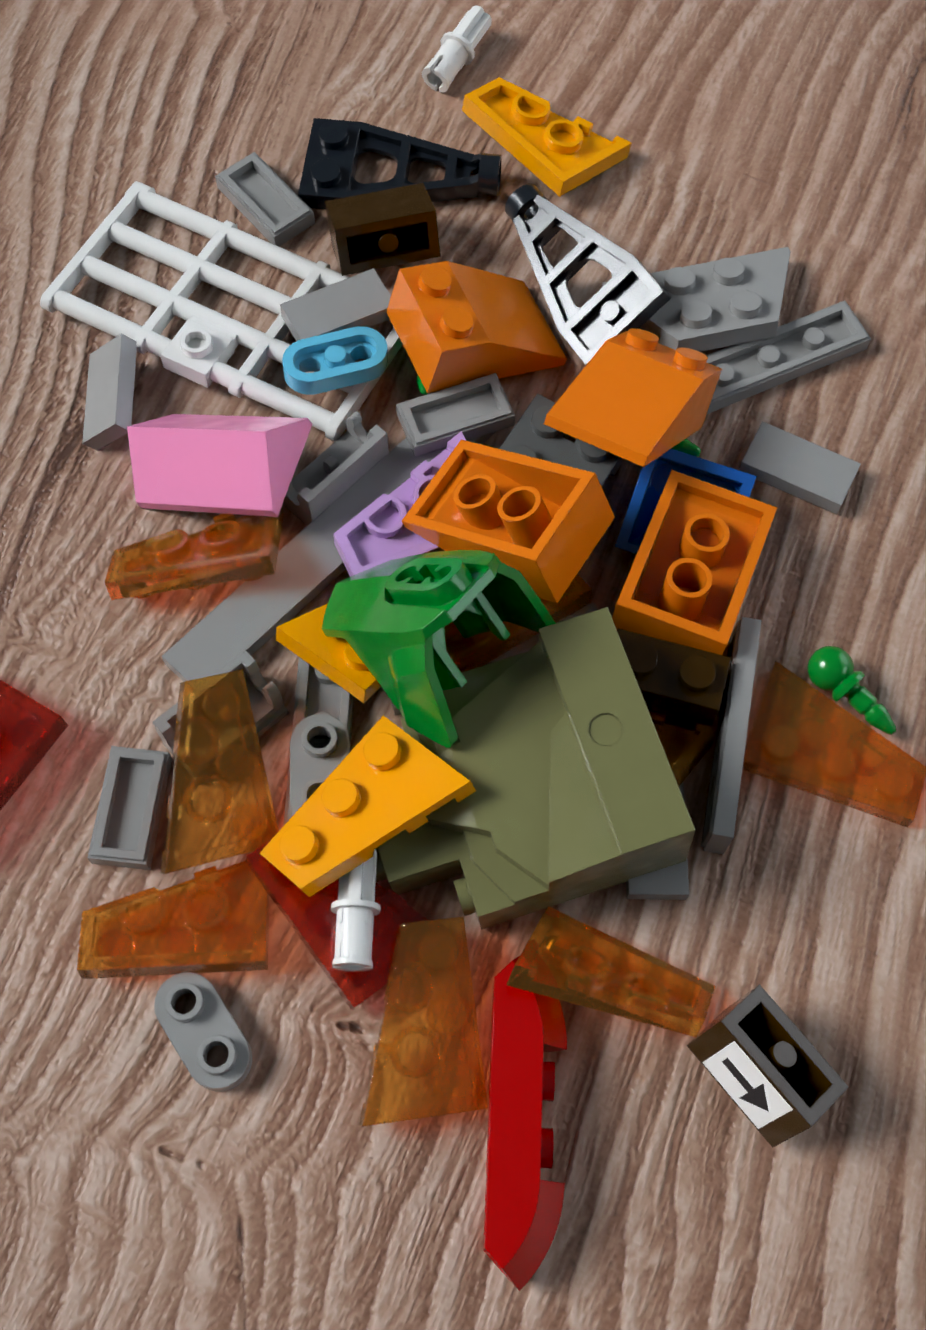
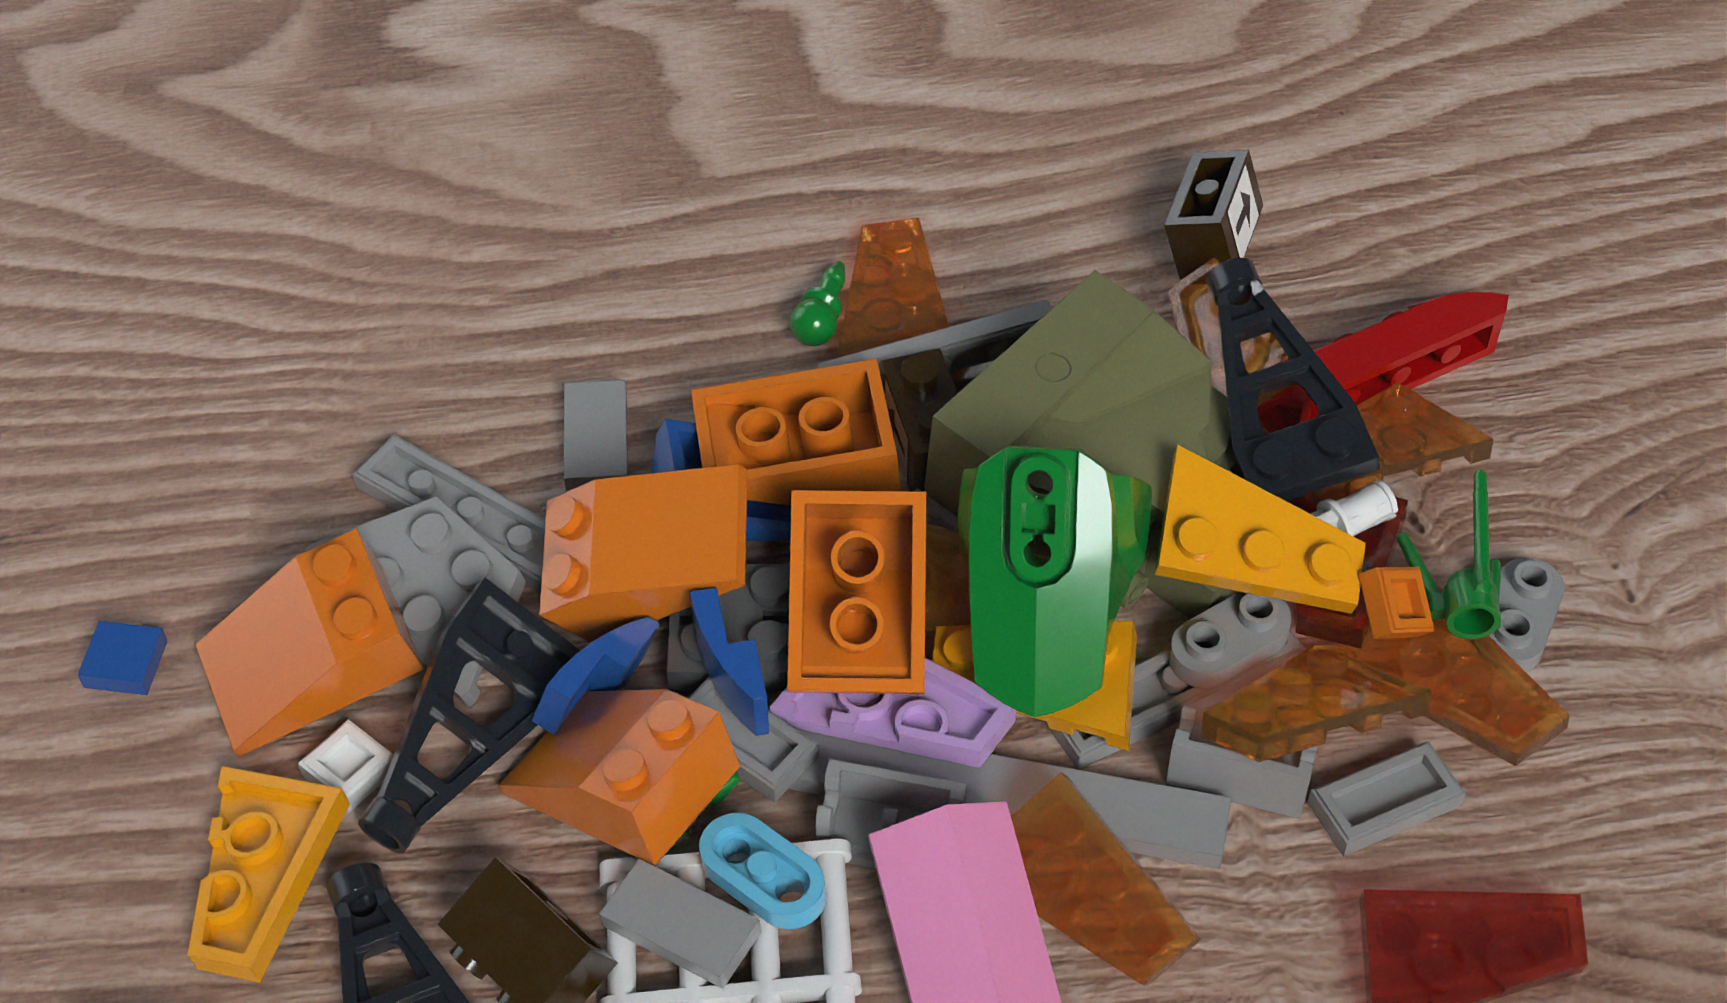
camera: 120 degrees left, 15 degrees down
(212, 959) = (1471, 595): none -> green plant
(246, 892) = (1396, 602): none -> orange tile
(418, 902) = (1305, 454): none -> black plate
(482, 400) = (731, 666): none -> blue slope
(563, 358) = (598, 667): none -> blue slope
(596, 208) = (349, 762): none -> white tile
(690, 214) = (307, 644): none -> orange slope
(757, 129) = (122, 658): none -> blue tile

